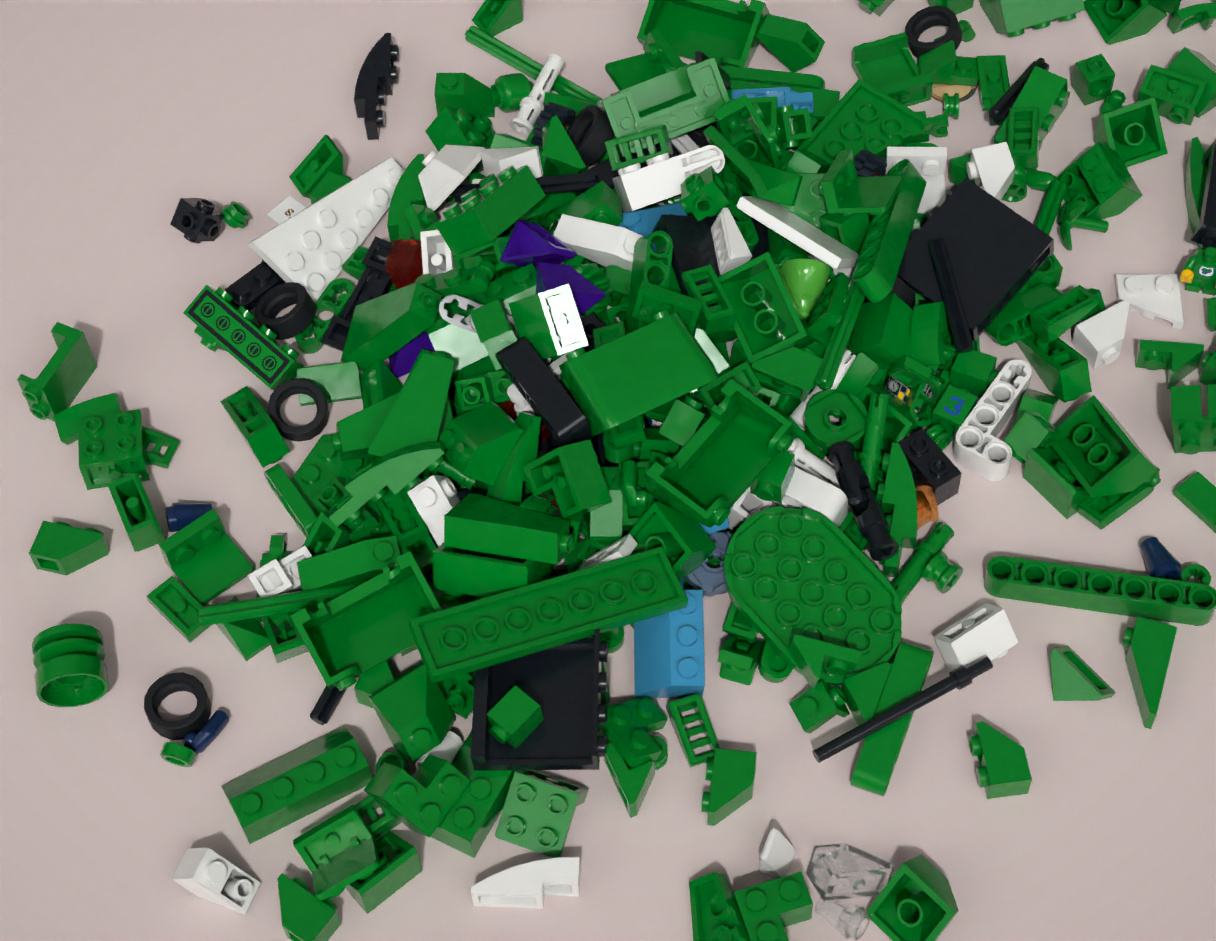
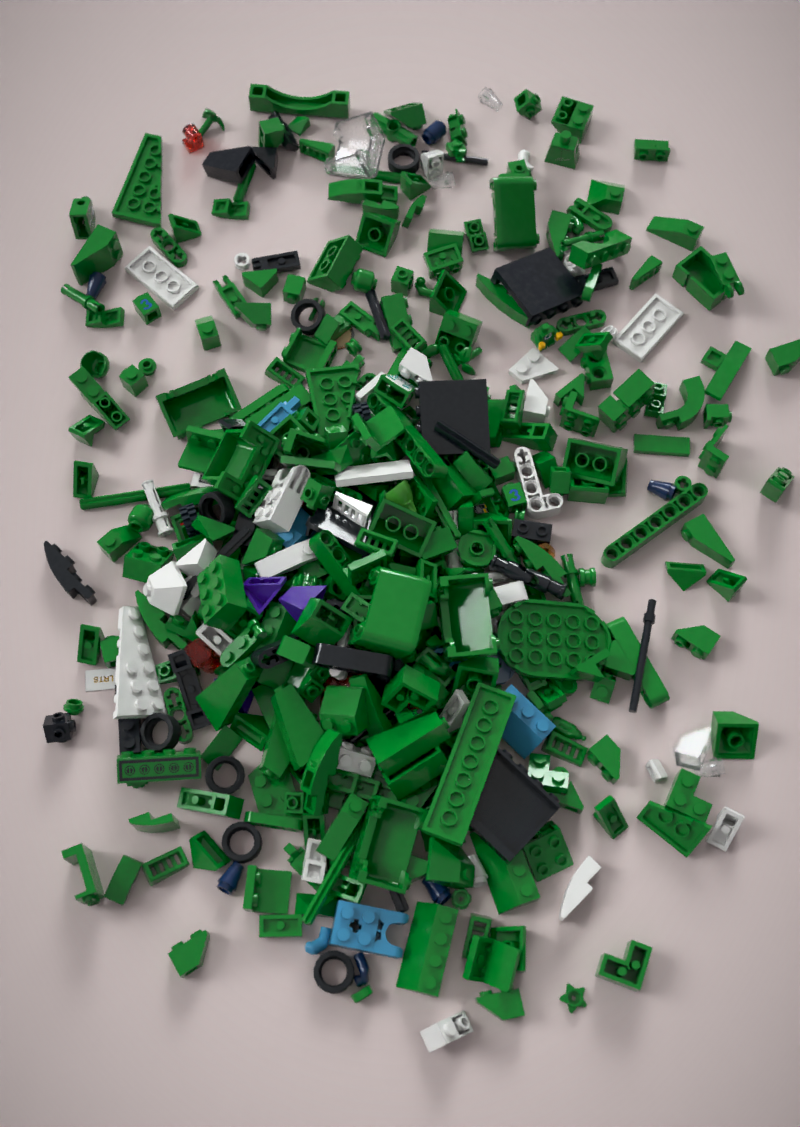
camera: 50 degrees left, 10 degrees up
(69, 665) = (266, 1008): green wheel -> none
(111, 448) = (155, 882): green bracket -> none
(136, 512) = (206, 902): green brick -> none
(177, 390) = (147, 823): none -> green slope
(196, 469) = (207, 853): none -> green slope
(198, 666) = (320, 943): none -> dark azure arm
(236, 472) = (238, 827): none -> black tyre
(259, 701) = (371, 931): none -> dark azure brick
(373, 737) = (438, 893): none -> dark blue cone
(418, 799) = (498, 898): green brick -> none
(514, 717) = (505, 824): green brick -> none
(656, 847) = (610, 817): none -> green slope
(712, 648) = (536, 701): none -> green plate
(721, 710) = (567, 729): none -> green piece
(790, 41) = (250, 376): green slope -> none
(834, 55) = (288, 371): none -> green slope
(936, 174) = (398, 391): none -> green torso
(976, 636) = (633, 594): white brick -> none
(1045, 44) = (363, 280): none -> green head
(1117, 739) = (726, 583): none -> green slope
(1133, 382) = (577, 420): none -> green bracket

